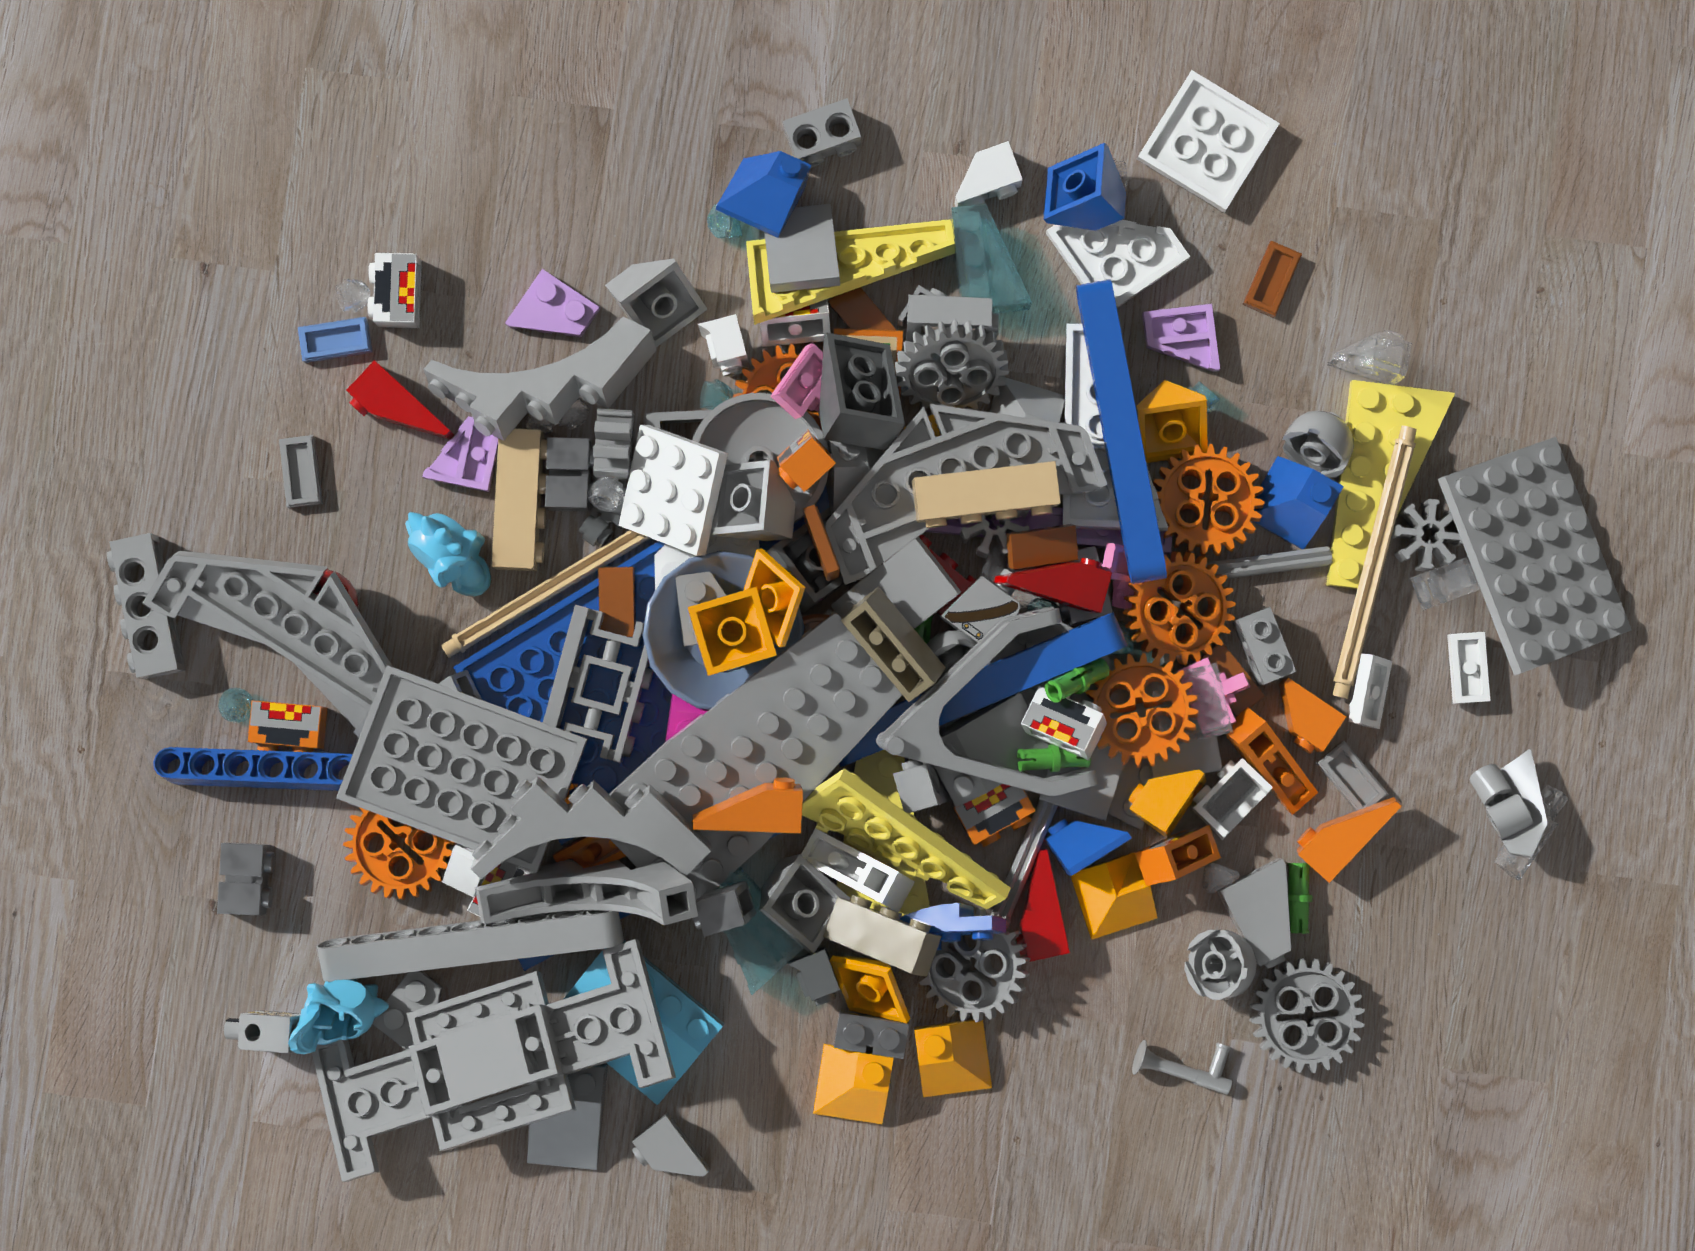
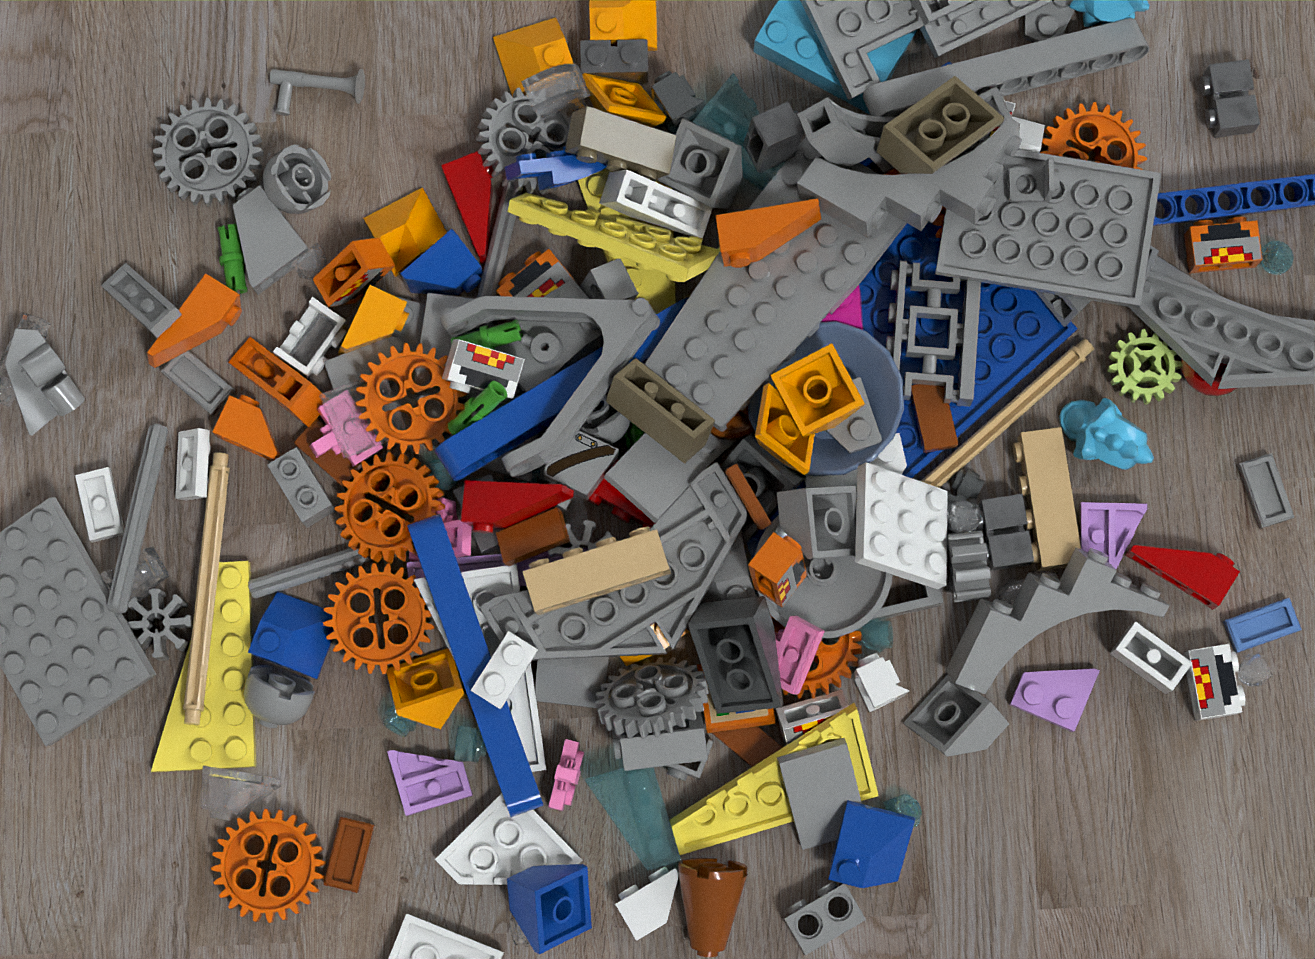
camera: 170 degrees right, 5 degrees down
(407, 607) = (1154, 375): none -> yellowish green gear
(452, 322) = (1150, 658): none -> white brick
(455, 809) = (1046, 180): none -> light grey bracket
(555, 877) = (937, 129): none -> dark tan slope
(928, 169) = (710, 901): none -> dark orange cone
(938, 1007) = (556, 89): none -> clear brick
(1004, 738) = (539, 342): none -> light grey piece
(1048, 308) = (567, 772): none -> bright pink hinge
(1093, 415) = (504, 670): none -> white plate
(1139, 361) = (469, 745): none -> clear light blue plate
(1380, 292) = (299, 872): none -> orange gear
(1398, 866) = (141, 300): none -> light grey plate
(1434, 641) = (137, 519): none -> light grey axle

